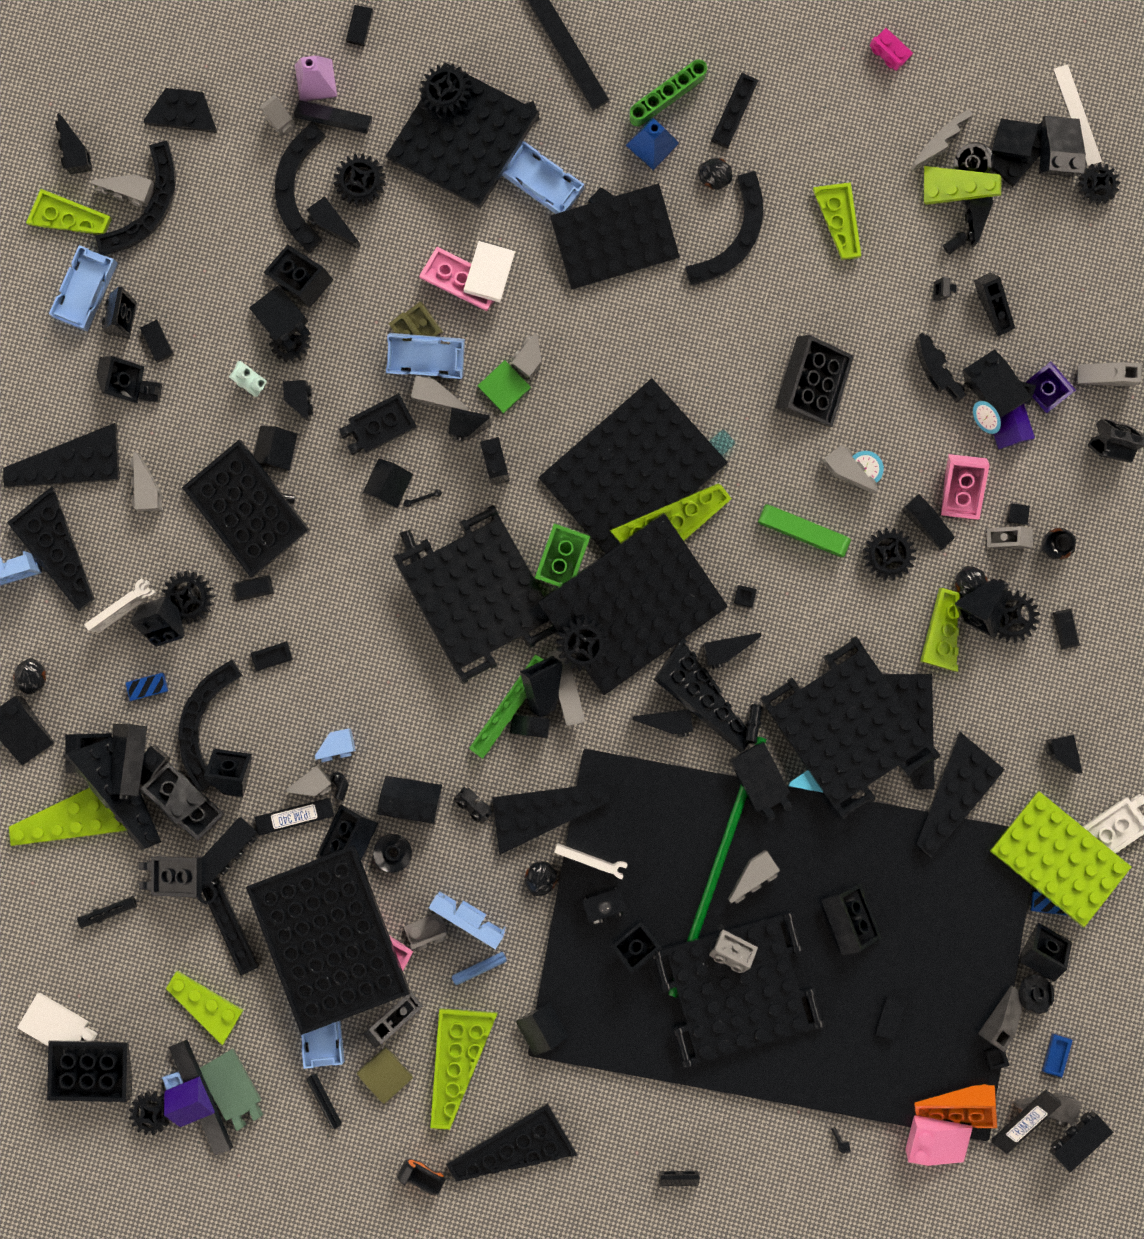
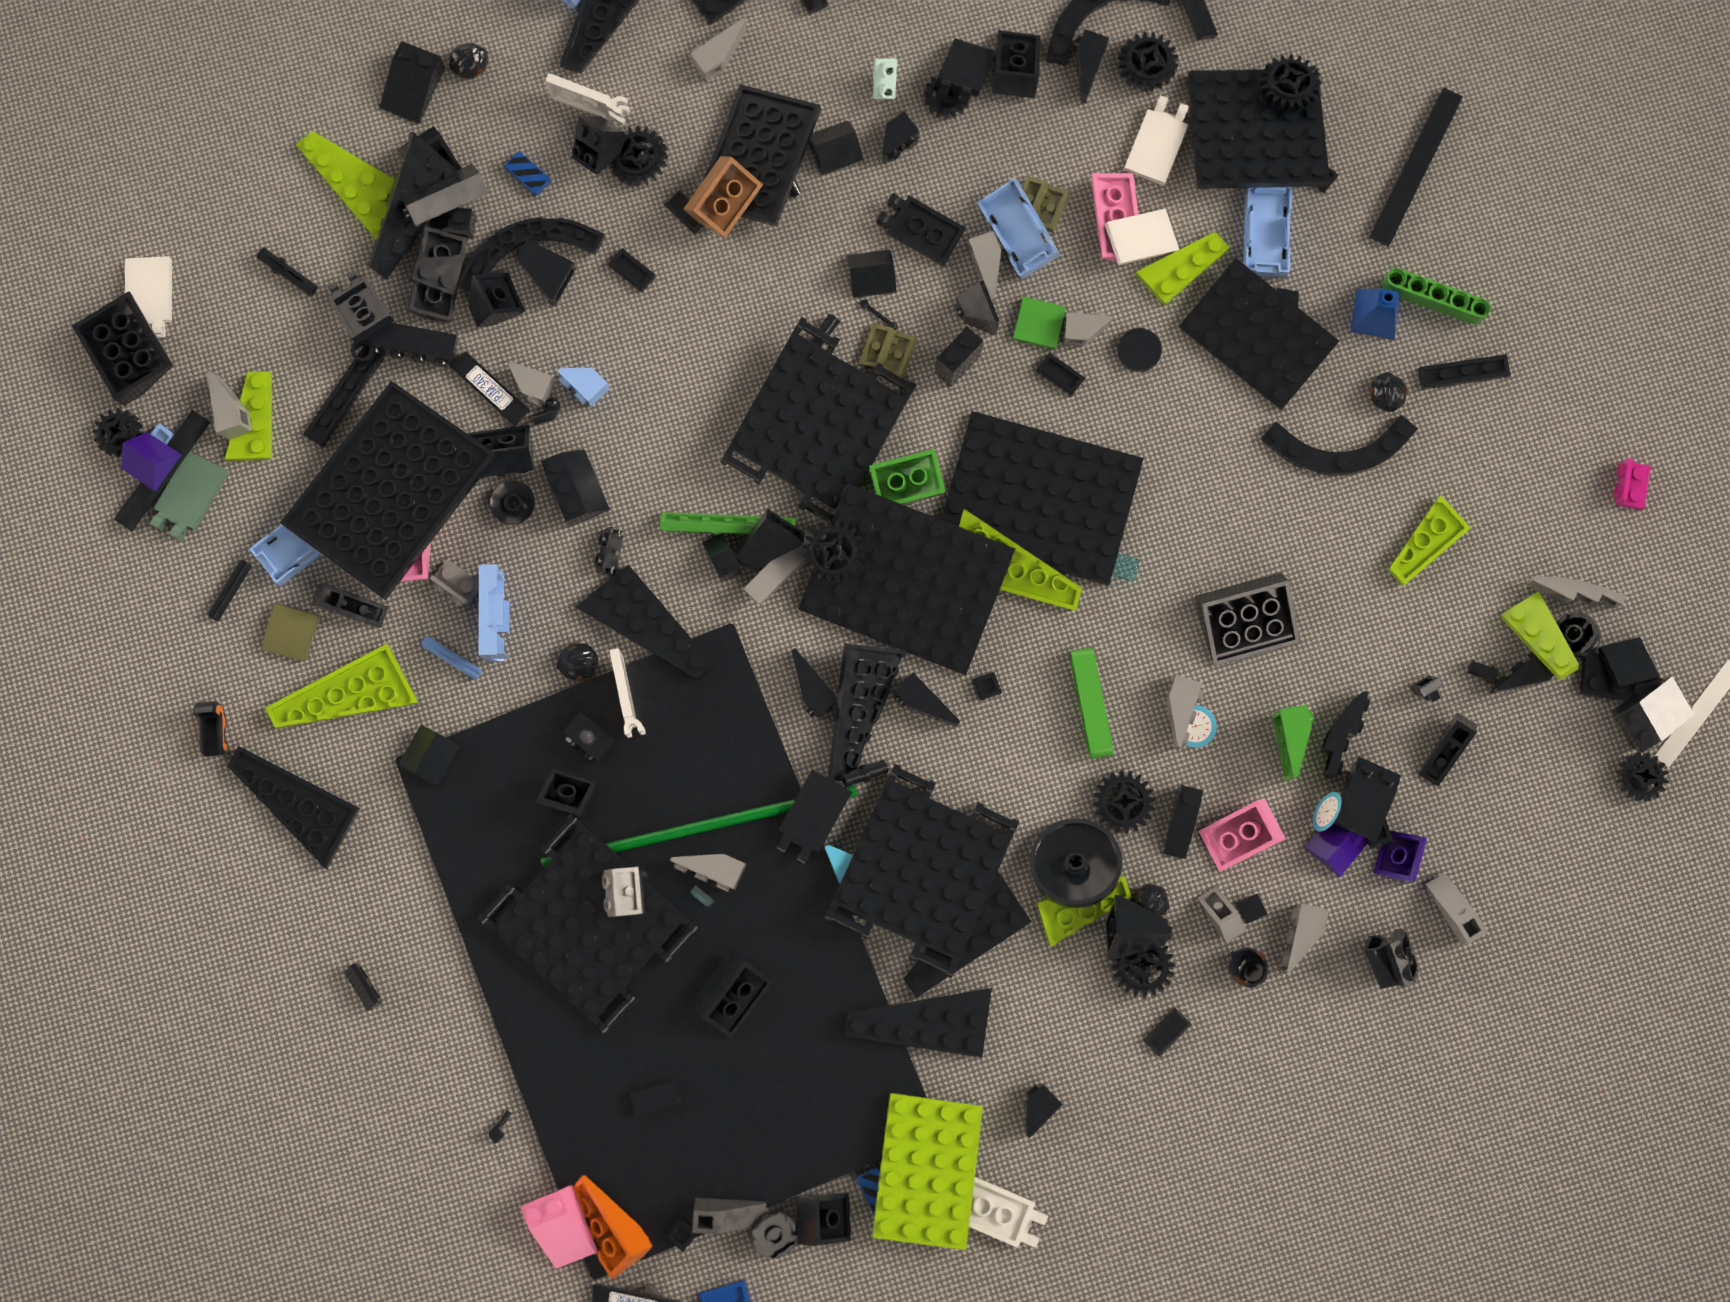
camera: 55 degrees right, 5 degrees down
(186, 1020) = (229, 413): none -> light grey slope
(231, 719) = (546, 269): none -> black slope
(262, 555) = (723, 196): none -> medium nougat slope
(425, 213) = (1157, 143): none -> white tile
(453, 507) = (888, 348): none -> olive slope
(529, 262) = (1176, 271): none -> lime wing
(551, 396) = (1060, 374): none -> black tile
(570, 328) = (1139, 349): none -> black tile
(769, 895) = (702, 896): none -> clear light blue tile
(910, 598) = (1081, 845): none -> black dish
(921, 406) = (1292, 733): none -> bright green slope
(1060, 489) = (1306, 930): none -> light grey slope

